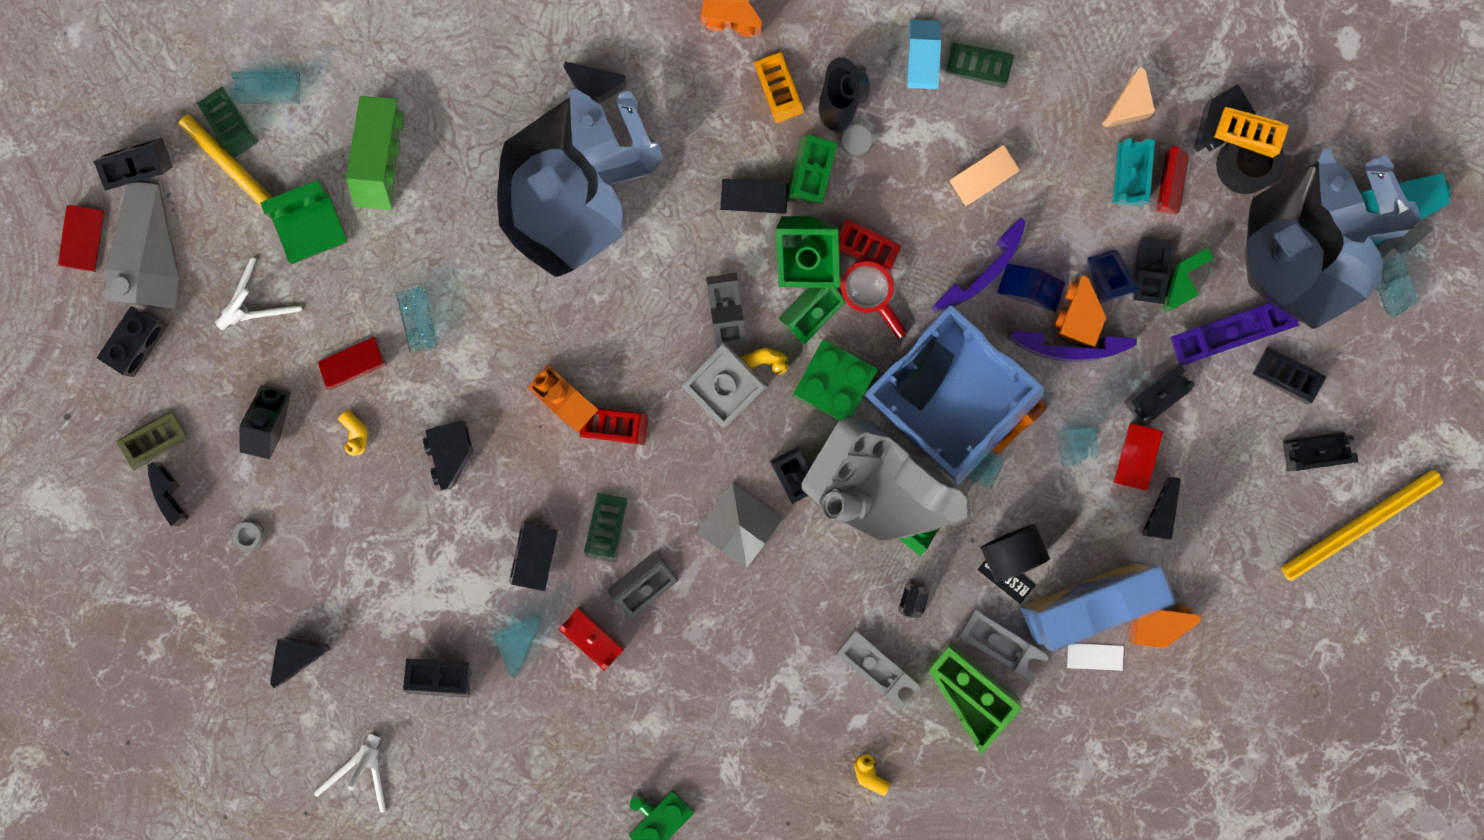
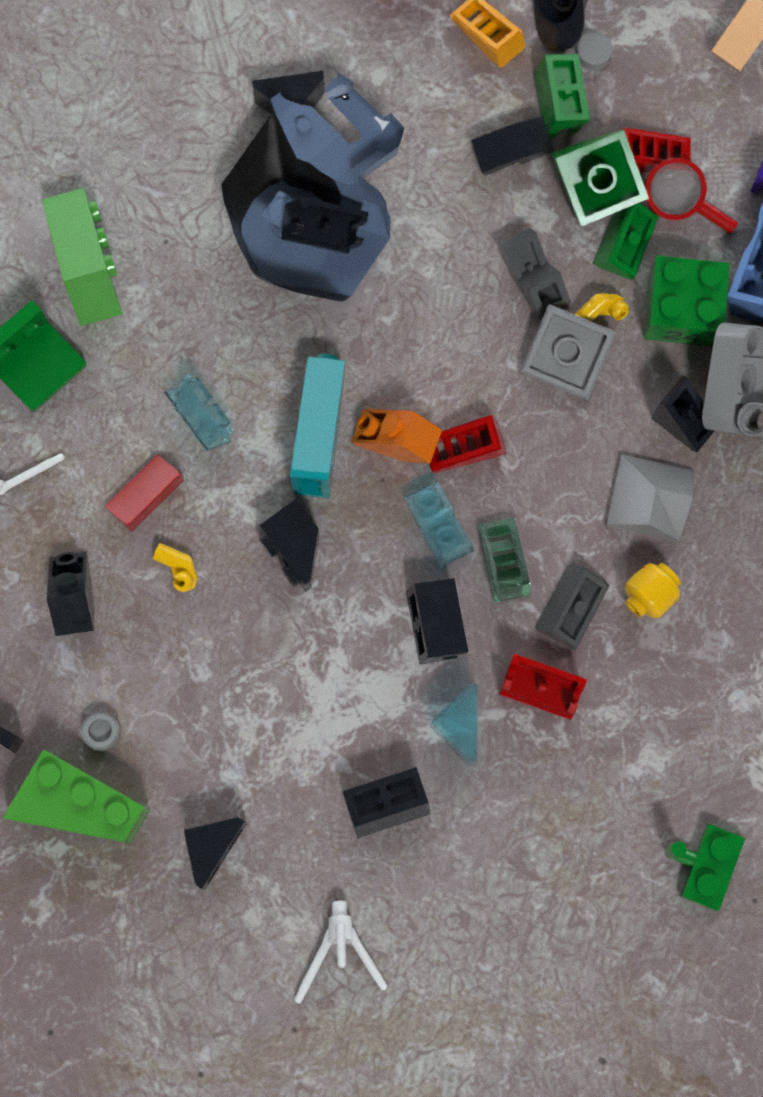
camera: 20 degrees left, 10 degrees down
(207, 584) = (74, 802): none -> bright green wedge
(503, 367) = (318, 427): none -> teal slope
(567, 480) = (438, 524): none -> clear light blue slope
(570, 207) = (322, 225): none -> black hinge
(705, 600) = (652, 590): none -> yellow head

